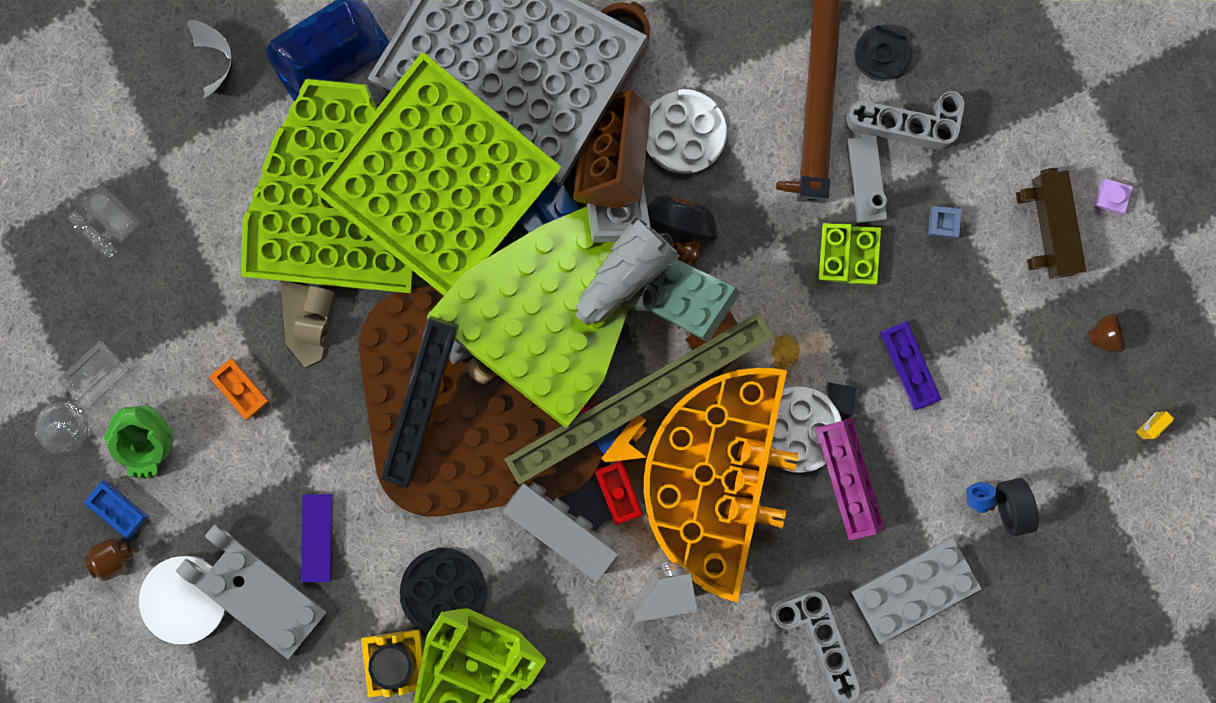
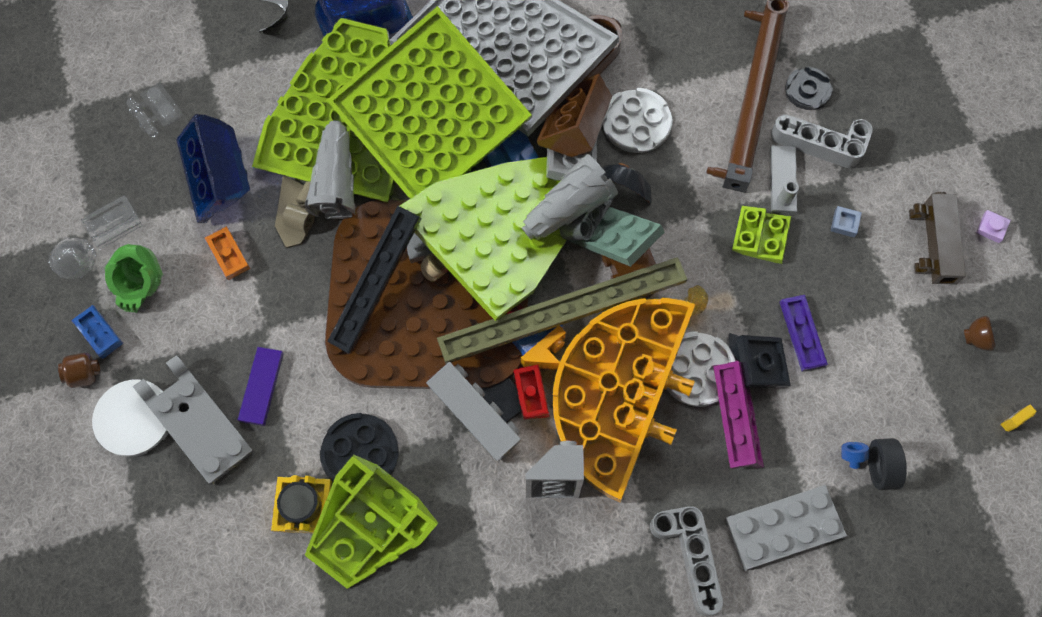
camera: 10 degrees right, 15 degrees down
(195, 288) = (212, 165): none -> clear blue windscreen
(340, 280) = (331, 177): none -> light grey cone
(688, 250) = (625, 205): reddish brown plant -> none
(870, 412) = (763, 362): none -> black tile

